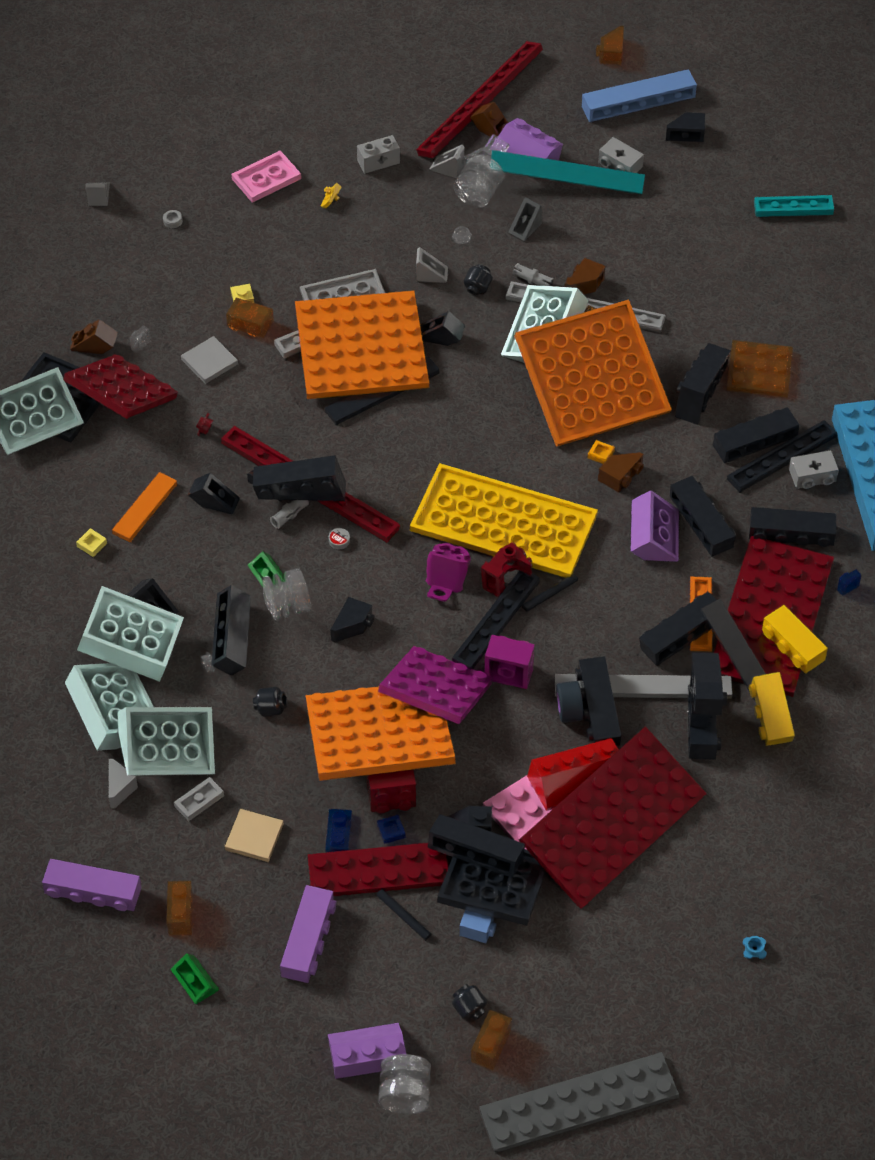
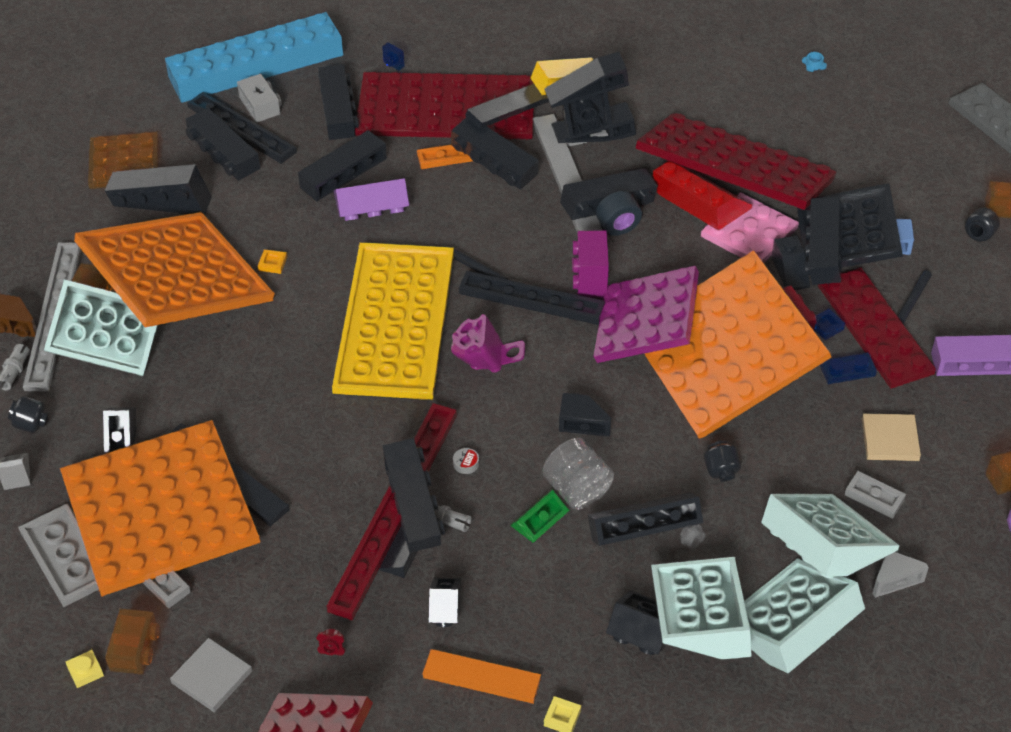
camera: 105 degrees left, 5 degrees down
(494, 571) = (470, 295): dark red tile -> none
(620, 469) = (299, 236): reddish brown slope -> none
(794, 639) = (482, 71): yellow brick -> none

